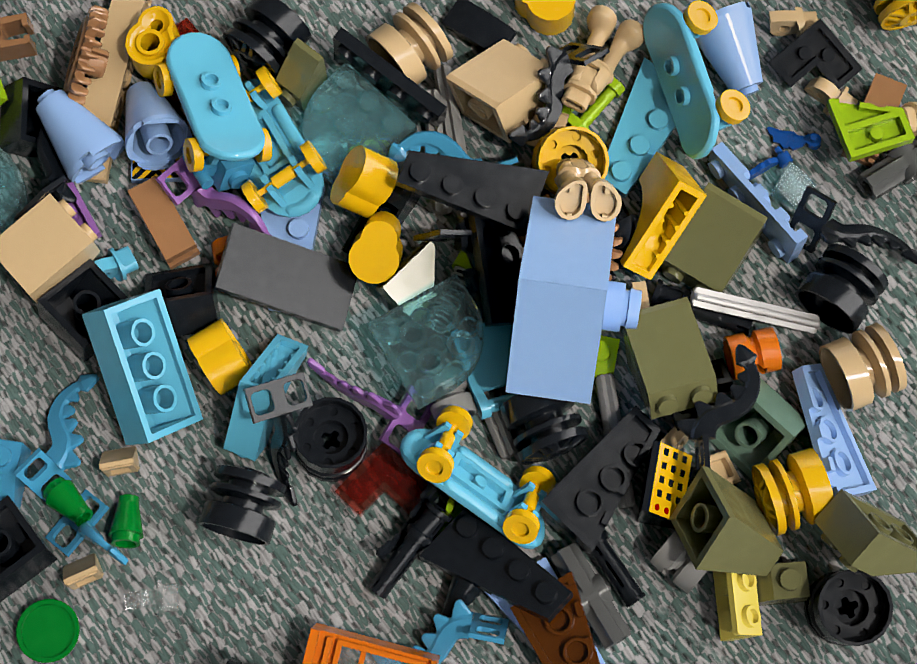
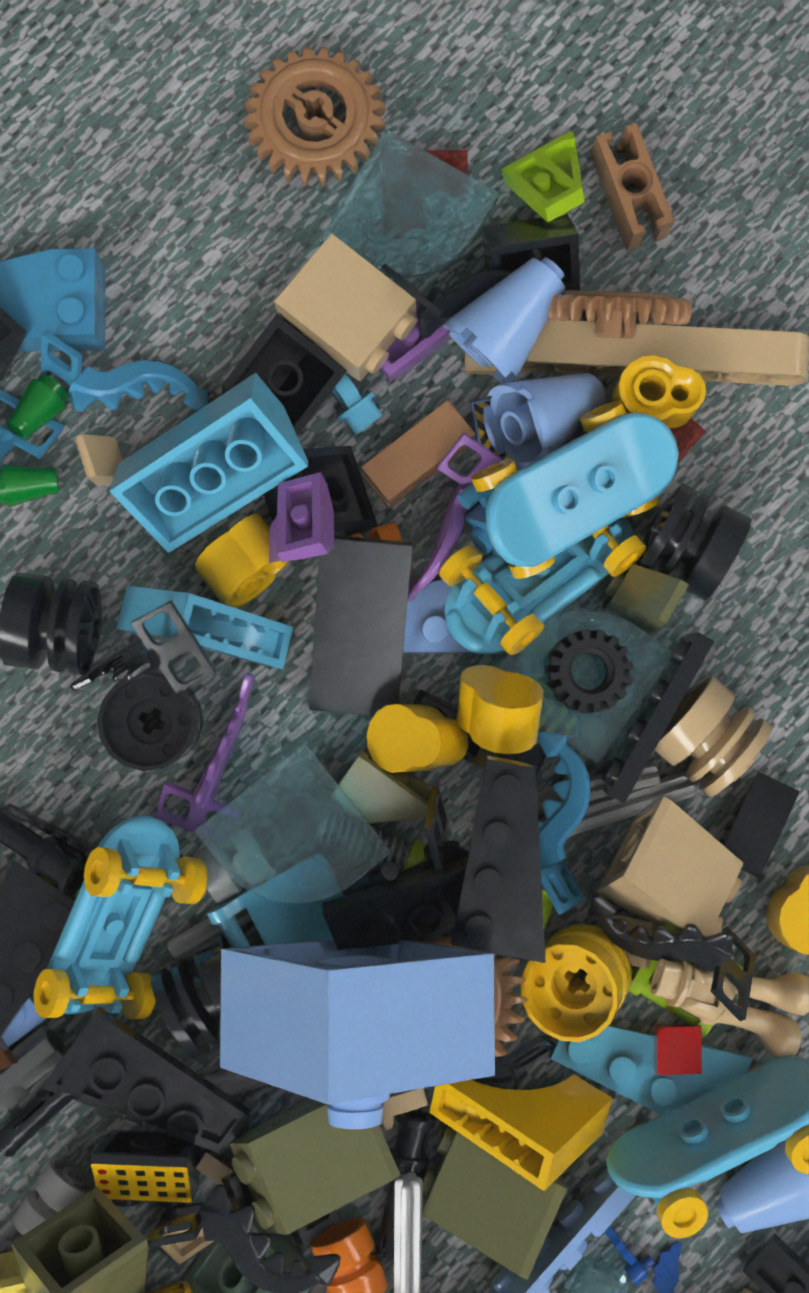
camera: 75 degrees right, 10 degrees up
(200, 299) = (302, 521): none -> medium lavender slope
(347, 98) = (615, 664): none -> black tyre
(379, 474) = (125, 790): clear red plate -> none
(575, 181) = (537, 1009): tan piece -> none
(628, 104) = (678, 1049): none -> red slope

